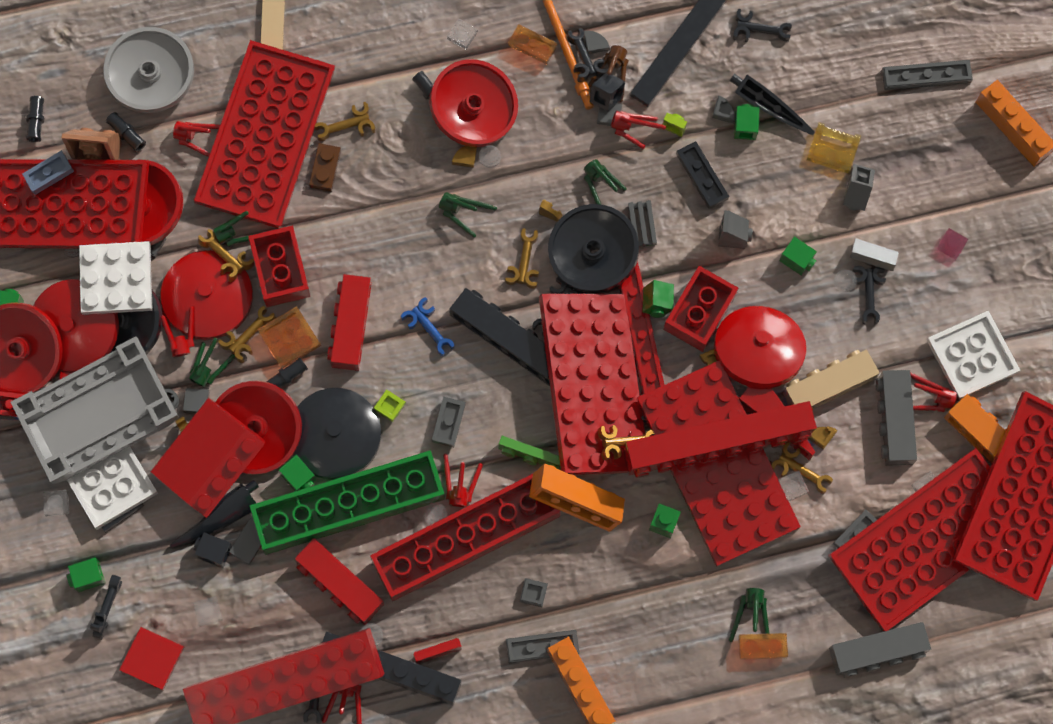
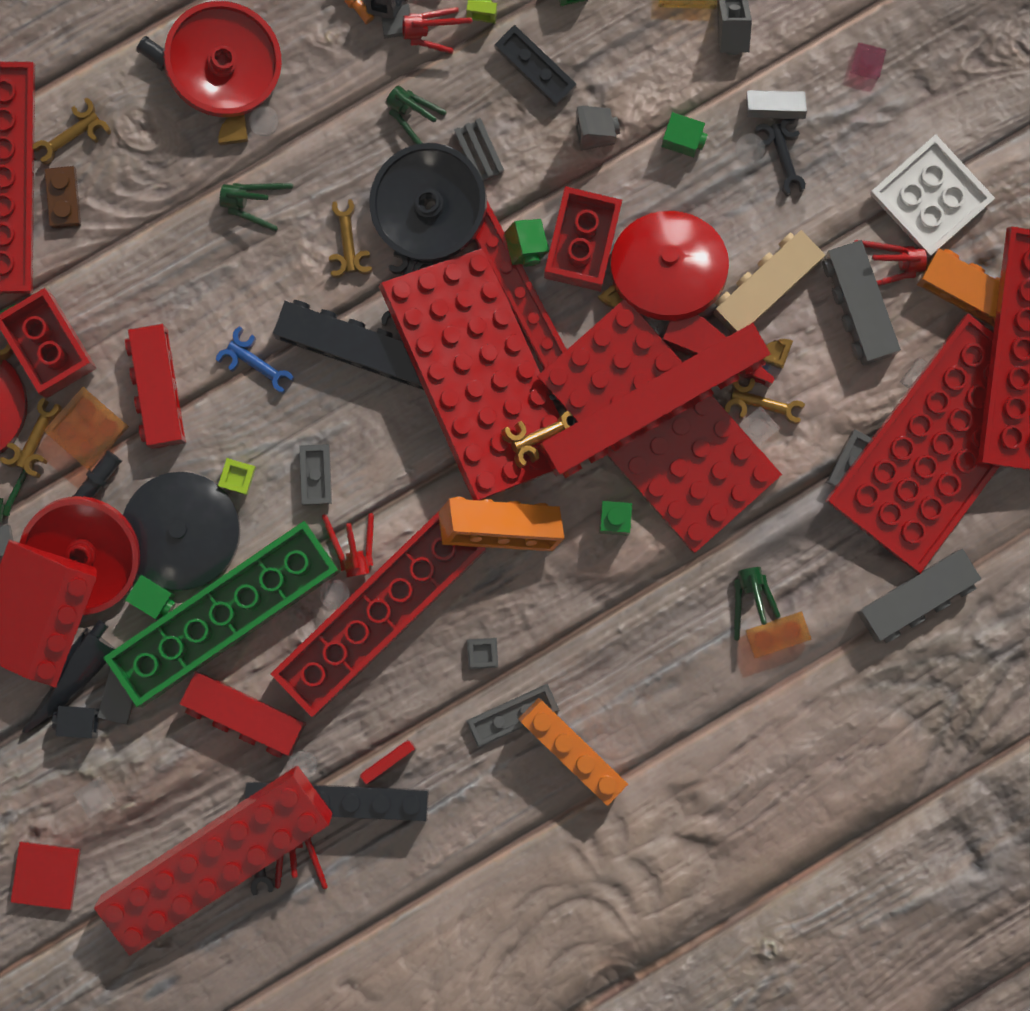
camera: 15 degrees left, 10 degrees up
(530, 454) = (426, 484): bright green plate -> none
(546, 210) = (355, 169): pearl gold tile -> none

